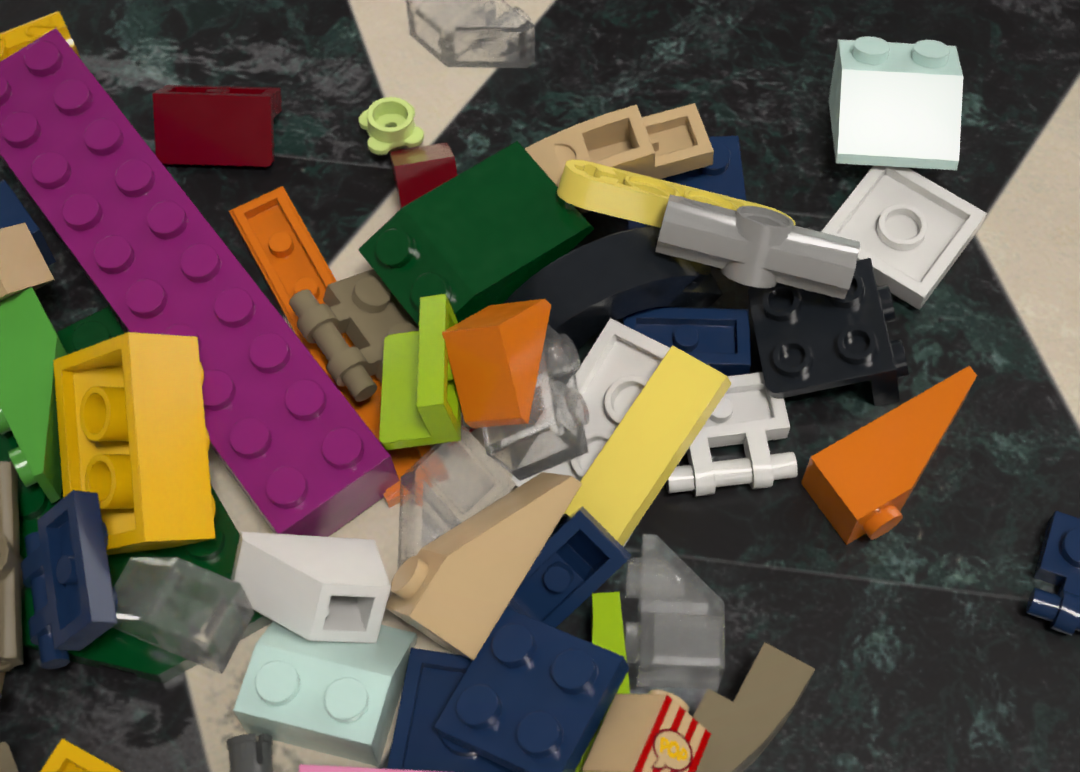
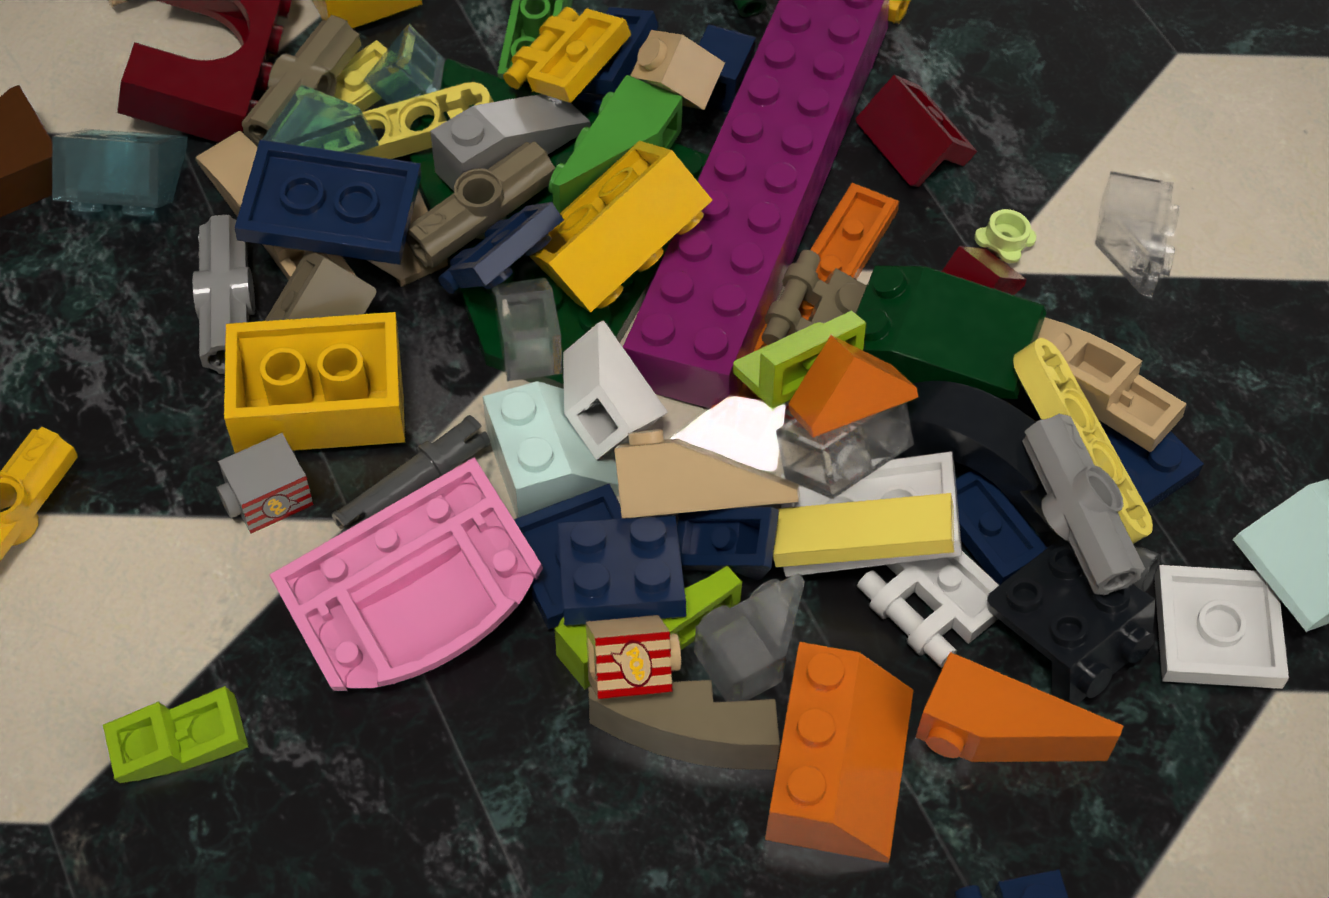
camera: 55 degrees right, 5 degrees down
(839, 618) = (840, 755): none -> orange slope

